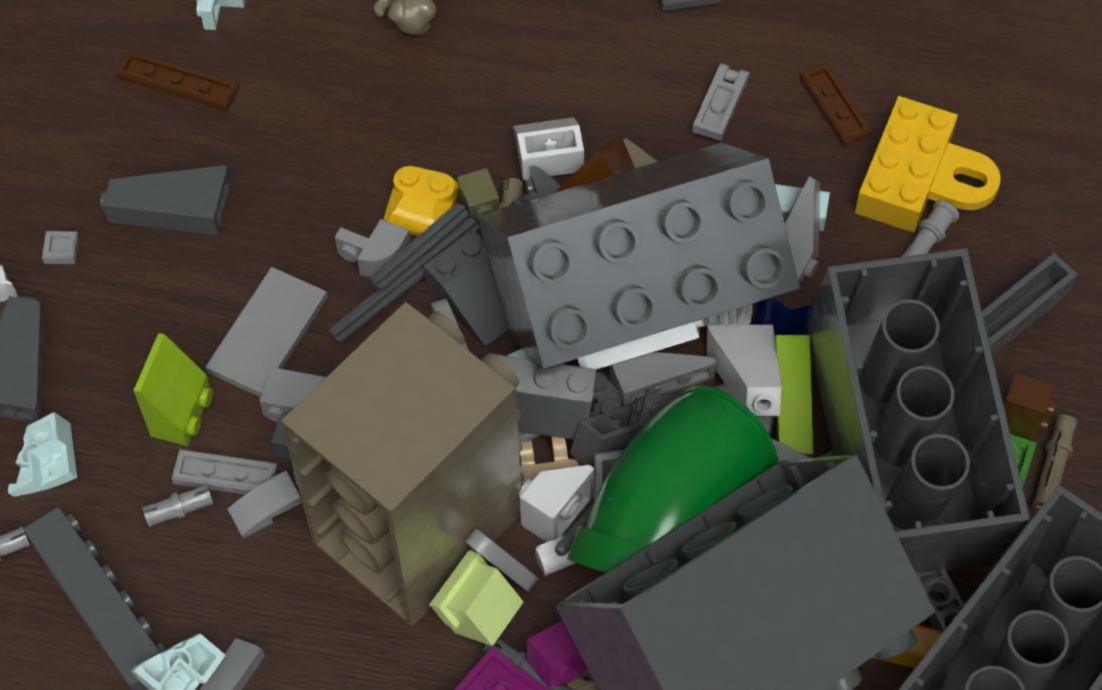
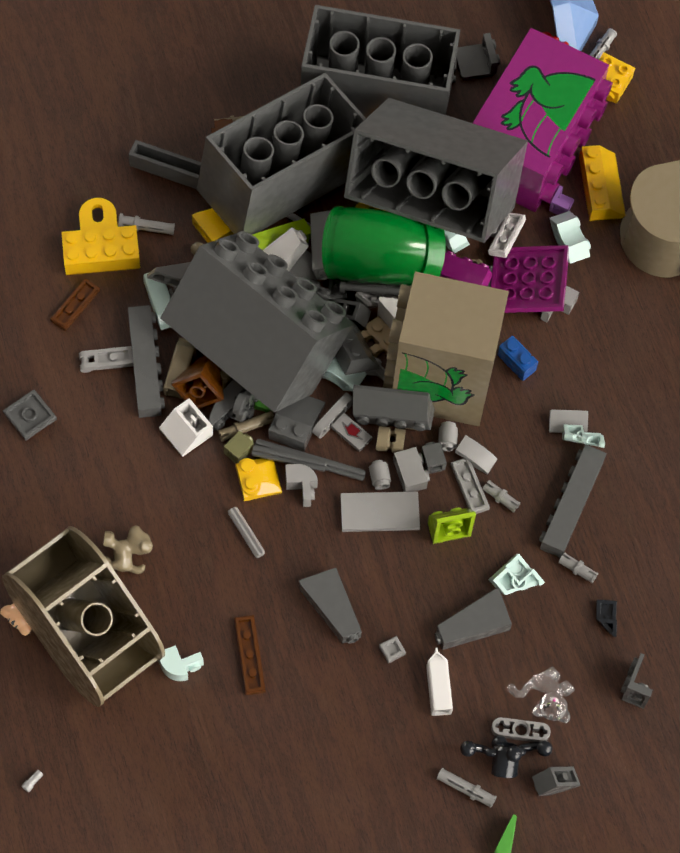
camera: 125 degrees left, 5 degrees up
(318, 354) = (380, 475): none -> light grey brick
(349, 152) = (246, 532): none -> light grey axle
(382, 651) = (517, 358): none -> blue brick
(671, 133) = (144, 361): none -> dark grey brick

